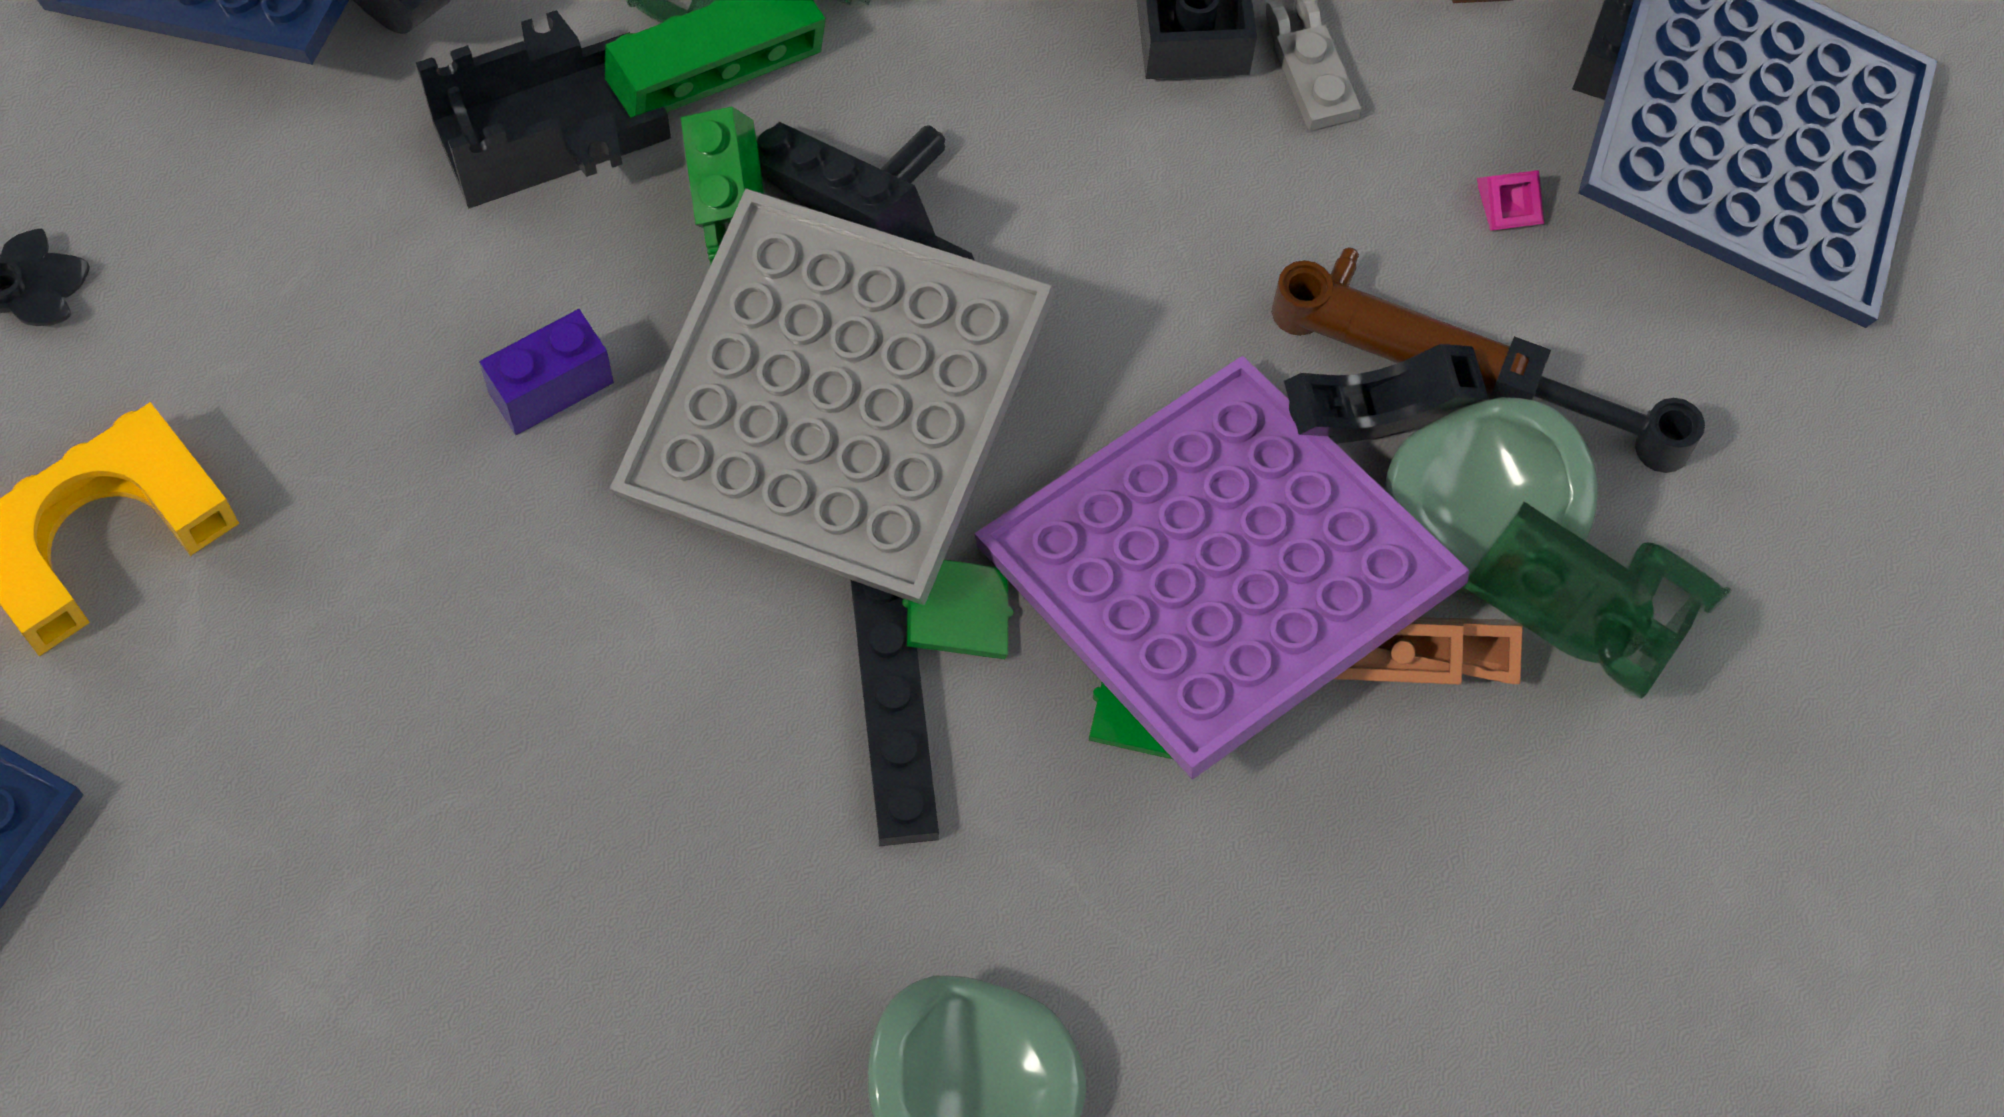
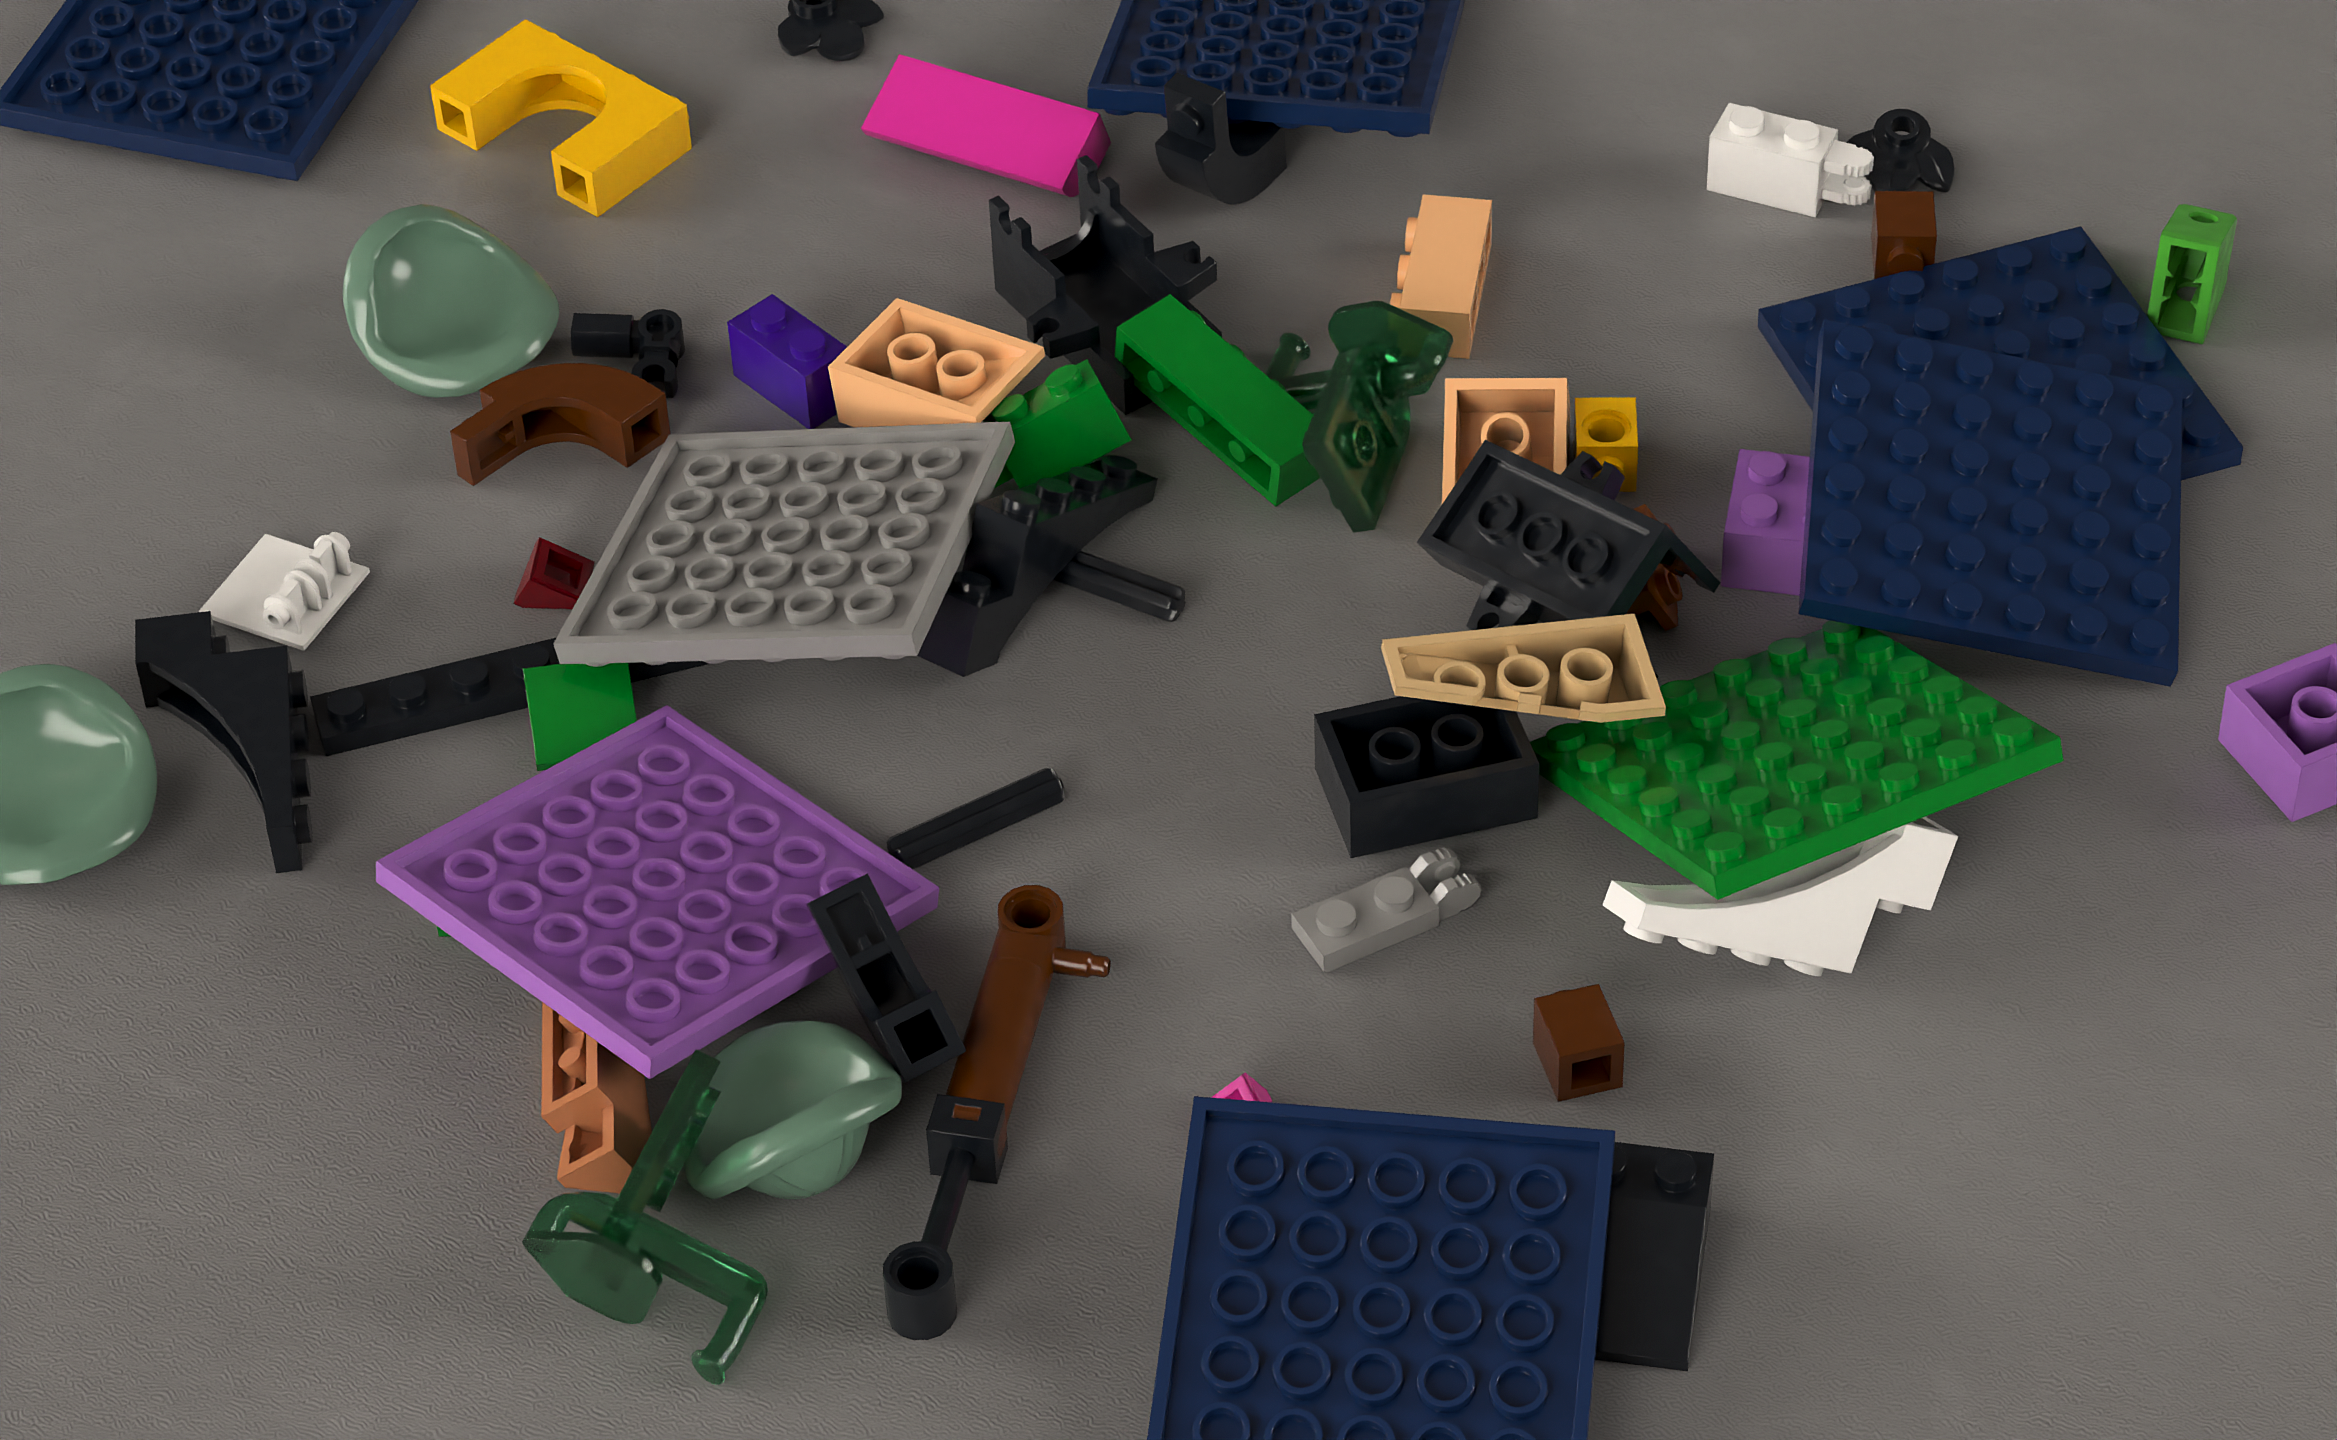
camera: 85 degrees right, 20 degrees down
(266, 167) = (986, 125): none -> dark pink brick
(381, 650) = (444, 302): none -> sand green piece
(459, 487) = (655, 337): none -> black bar
(545, 551) = (561, 404): none -> reddish brown arch
(631, 249) = (926, 369): none -> light nougat slope
(716, 853) = (287, 589): none -> white hinge
(765, 614) = (553, 577): none -> dark red slope
(895, 890) = (243, 707): none -> black arch
(1154, 323) = (977, 818): none -> black axle

